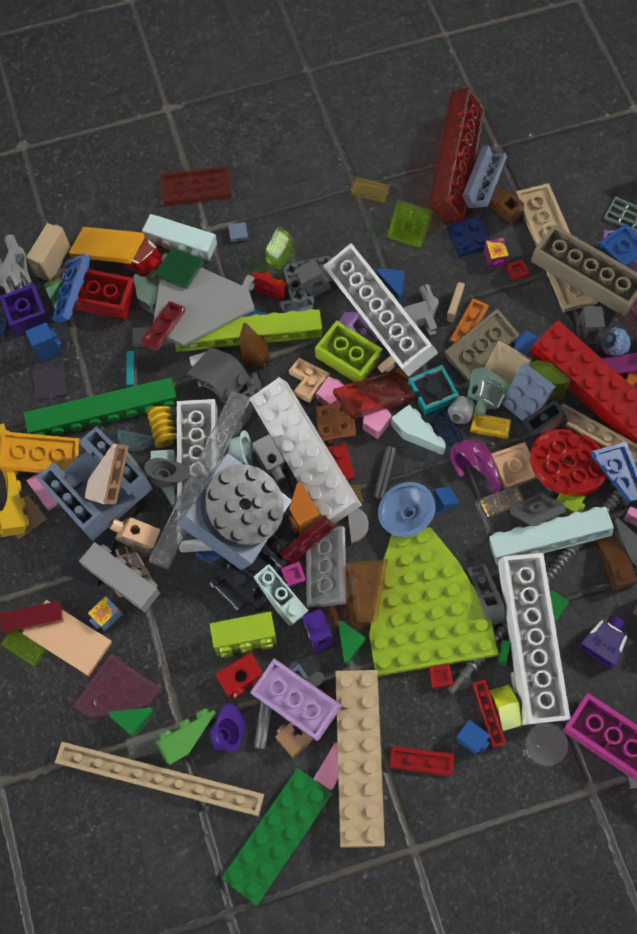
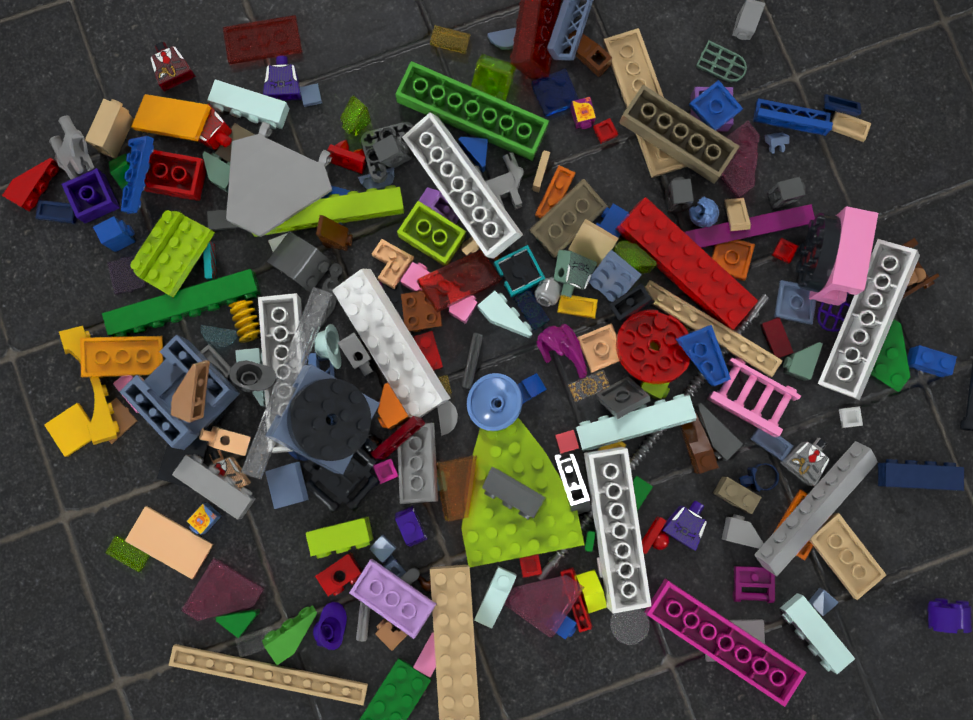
camera: 10 degrees left, 15 degrees up
(31, 617) = (132, 526): dark red tile -> none
(96, 360) = (171, 251): none -> lime plate
(110, 204) = (170, 67): none -> torso
(163, 326) = (237, 215): dark red tile -> none
(179, 268) = (250, 144): dark green tile -> none
(192, 583) = (286, 485): none -> sand blue tile
(213, 218) = (282, 81): none -> dark purple torso
(280, 595) = (373, 497): light aqua slope -> none
(286, 652) = (382, 548): none -> sand blue slope
(350, 642) = (443, 536): green slope -> none
(391, 247) = (472, 110): none -> bright green brick
(403, 707) = (495, 596): none -> light aqua slope
(420, 190) = (503, 39): none -> sand blue tile
(421, 761) = (513, 645): red tile -> none
(425, 594) = (513, 493): none -> dark grey slope
(456, 712) = (545, 602): none -> clear pink plate
(479, 554) = (567, 441): none -> coral tile
(575, 654) = (655, 537): none -> red tile

